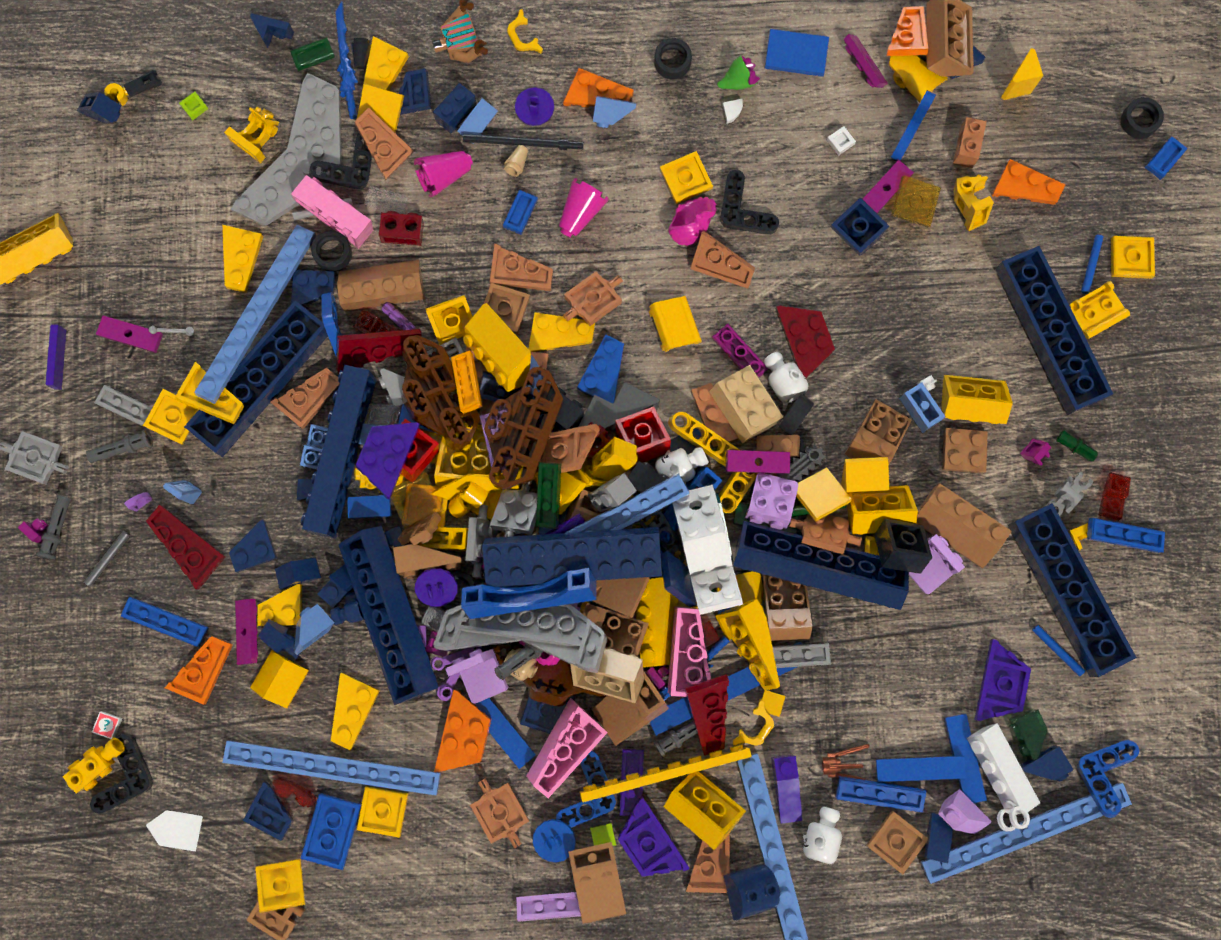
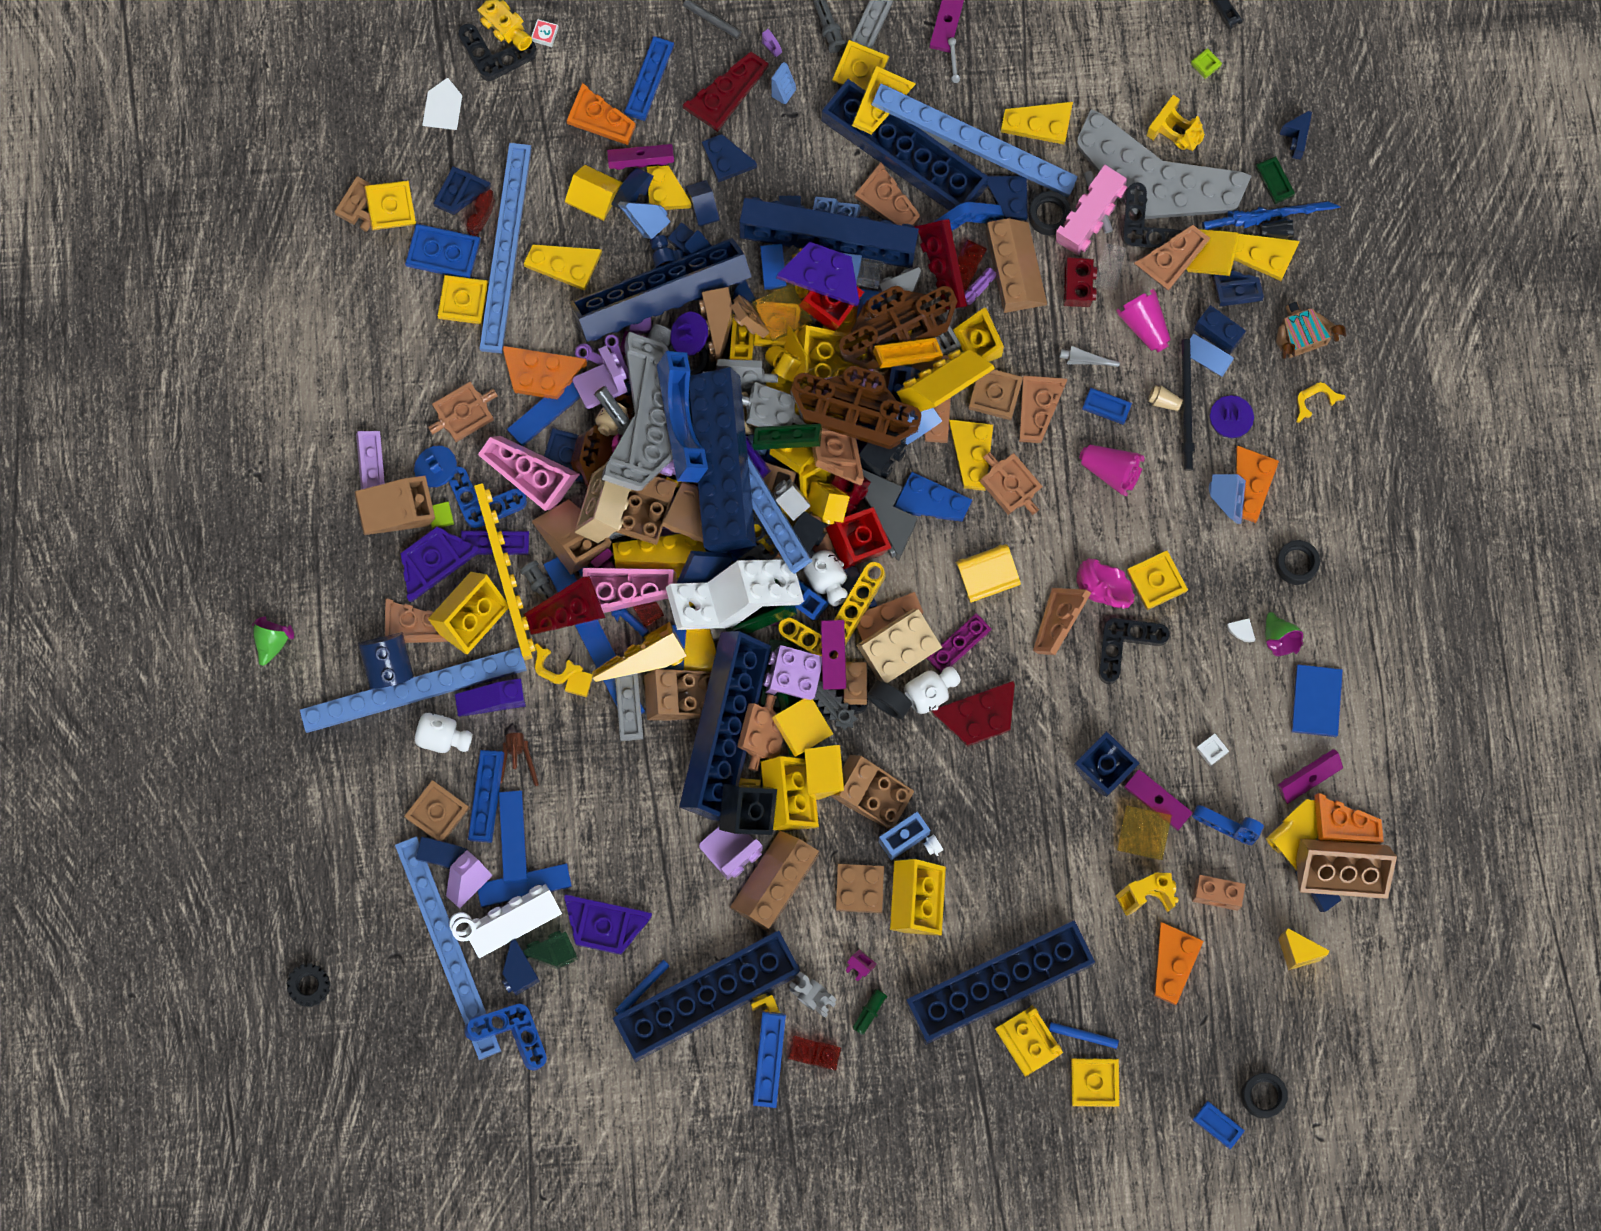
camera: 85 degrees right, 5 degrees down
(472, 232) = (1079, 356): none -> light grey piece

